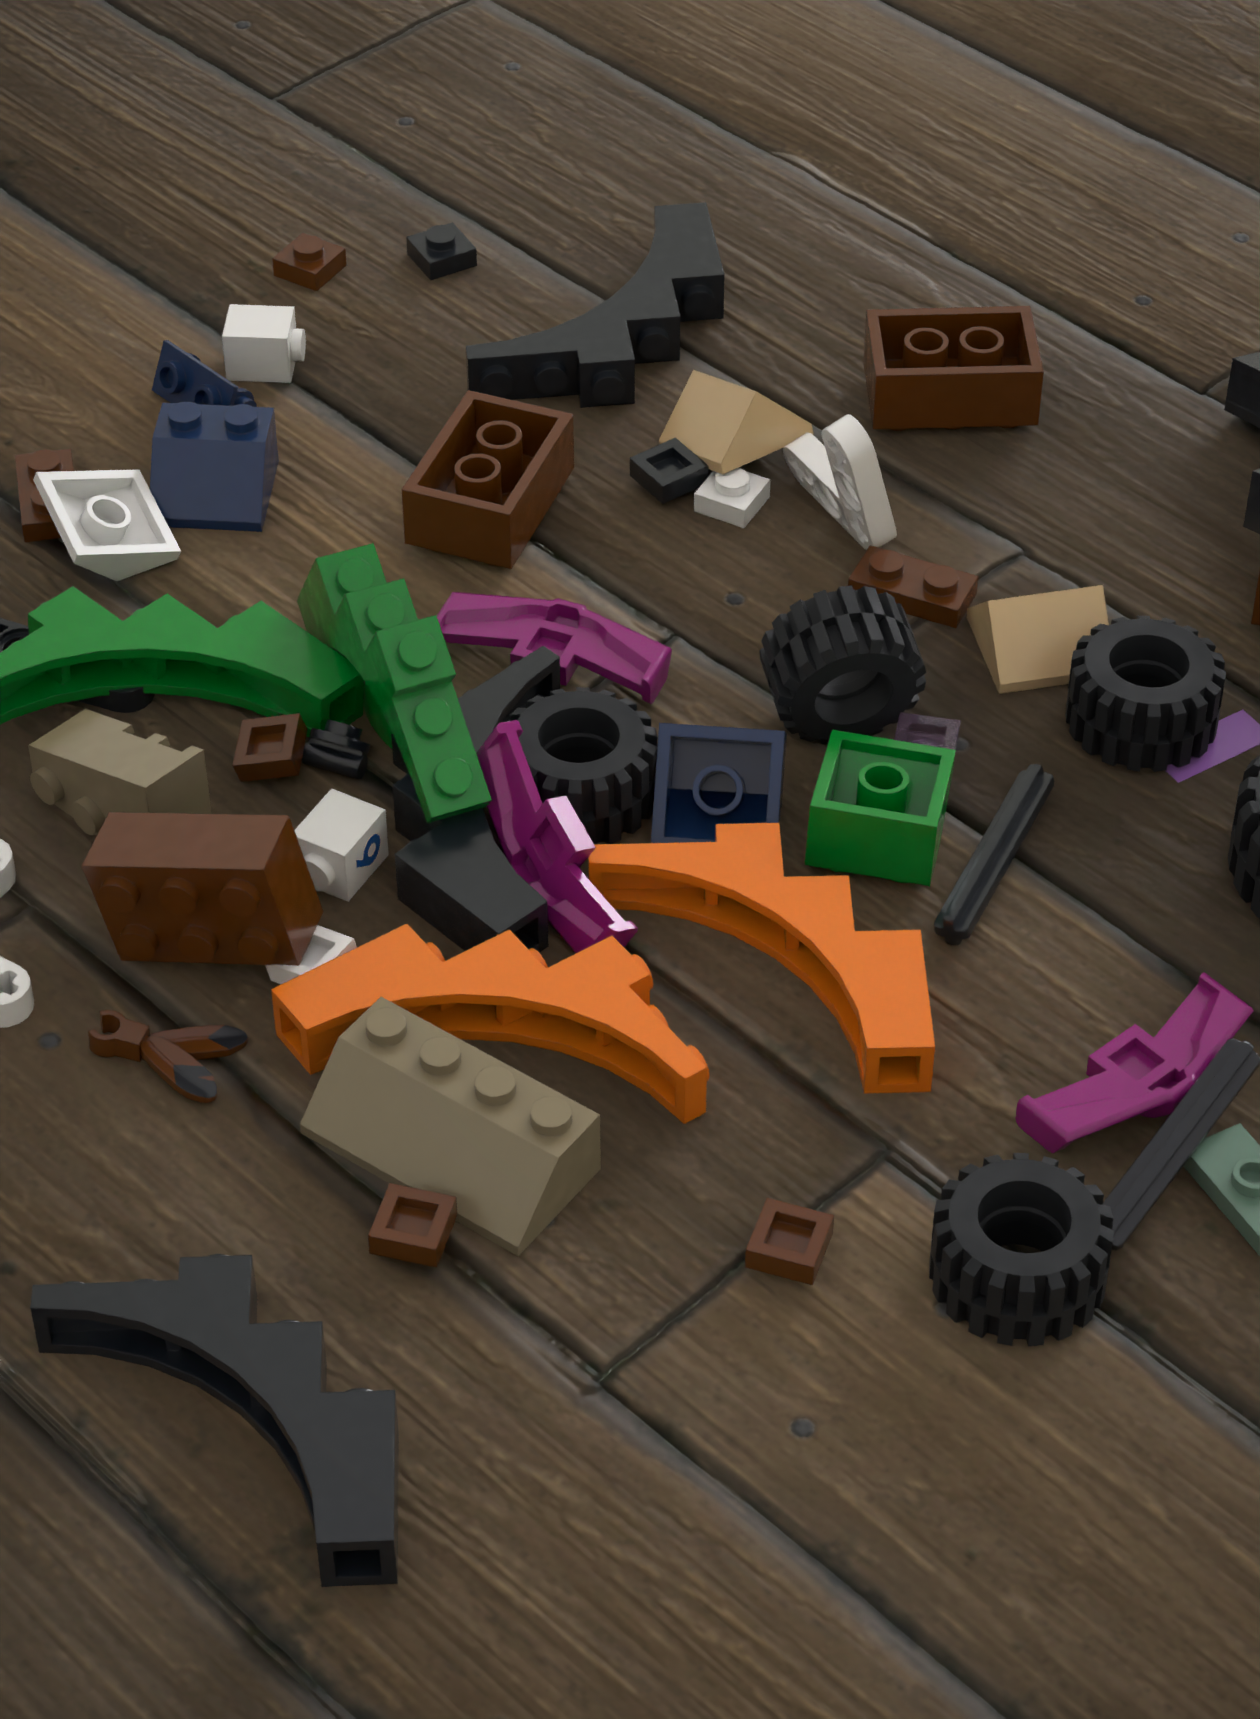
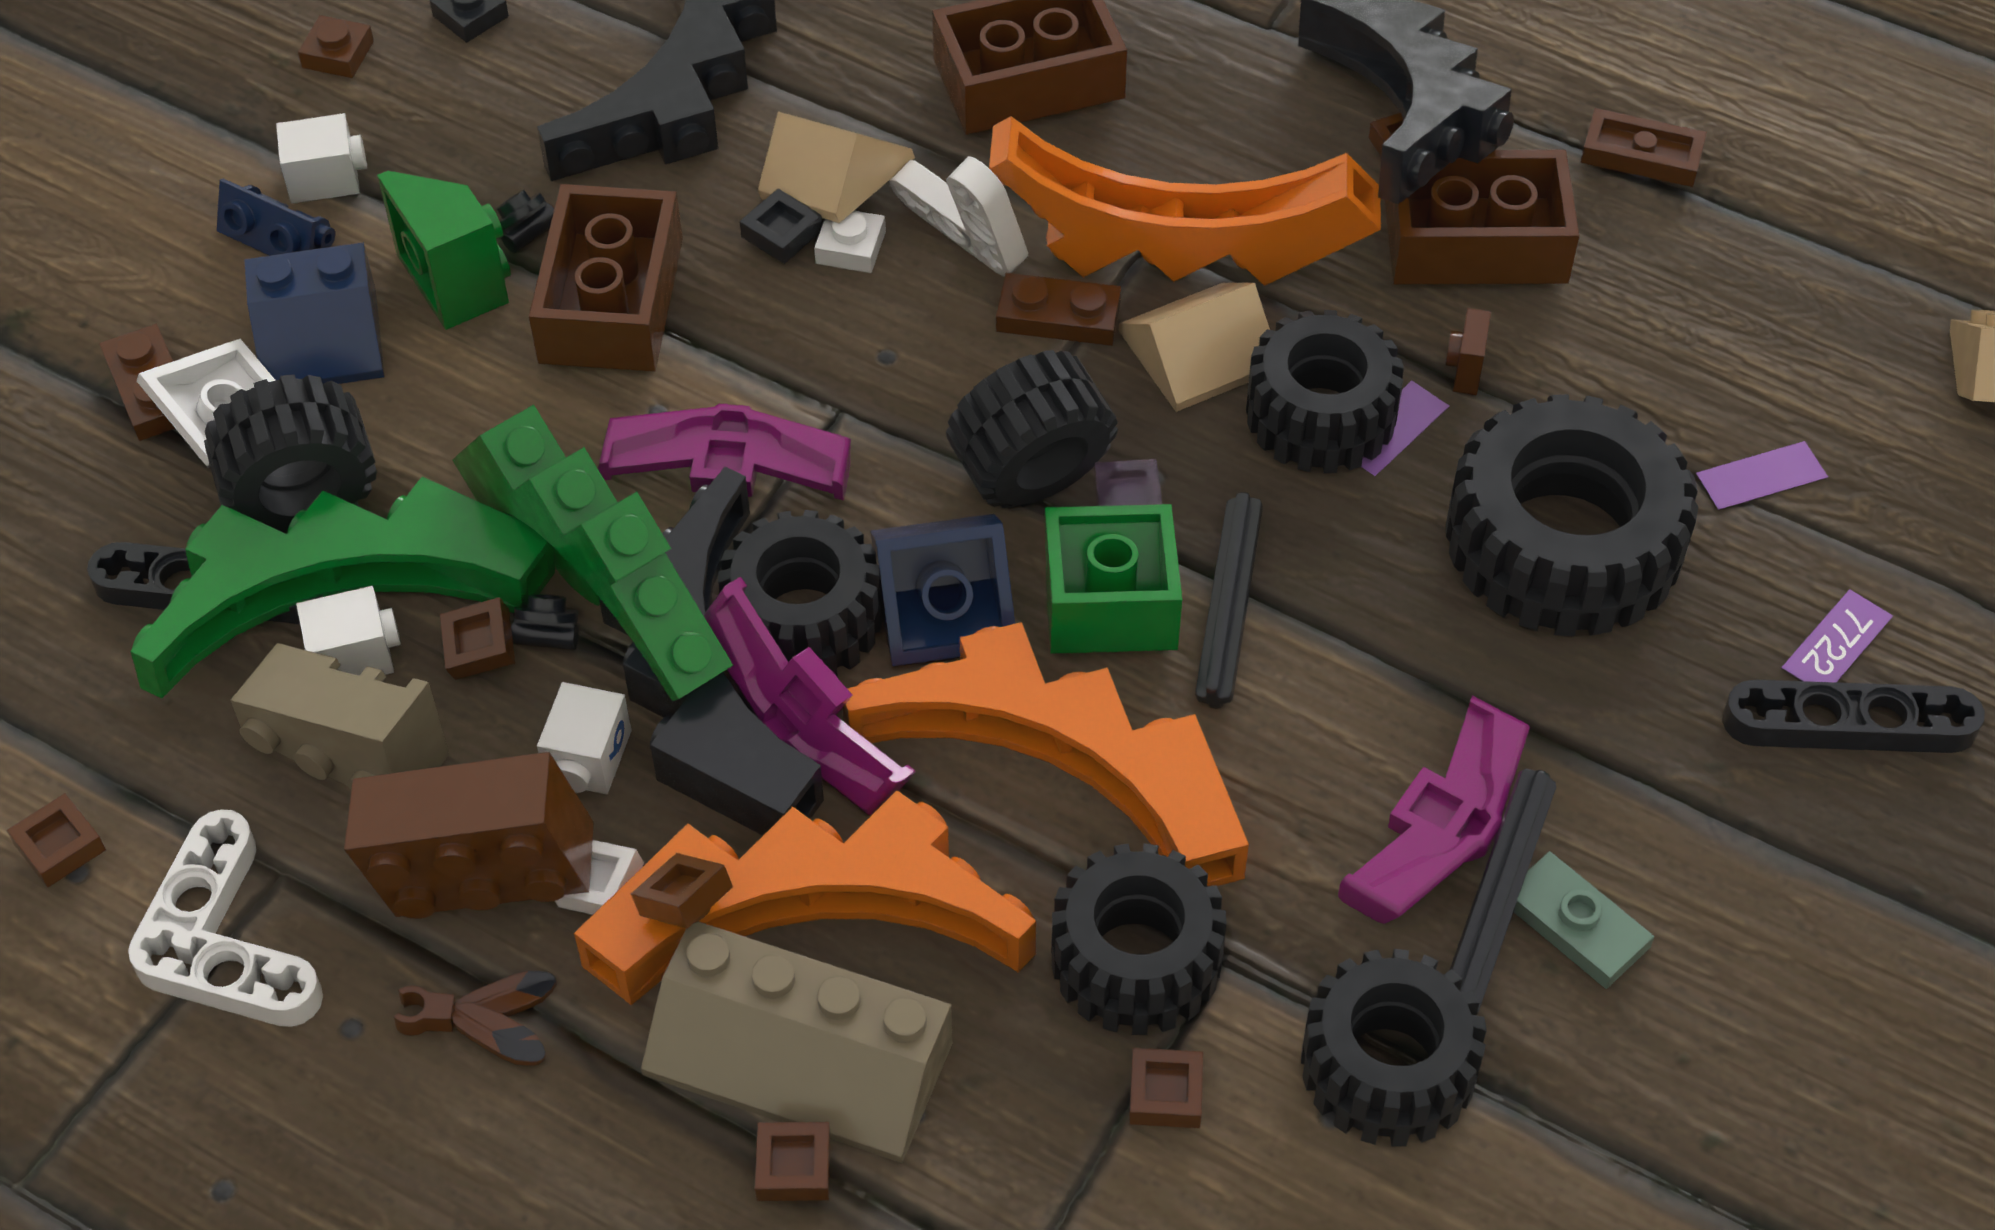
camera: 15 degrees left, 10 degrees up
(148, 526) = (286, 446): none -> black tyre
(158, 708) = (350, 629): none -> white brick
(350, 426) = (447, 245): none -> green slope
(379, 968) = (682, 890): none -> reddish brown plate
(426, 423) = (524, 219): none -> black plate
(802, 1147) = (1137, 891): none -> black tyre
(1050, 531) = (1182, 227): none -> orange arch

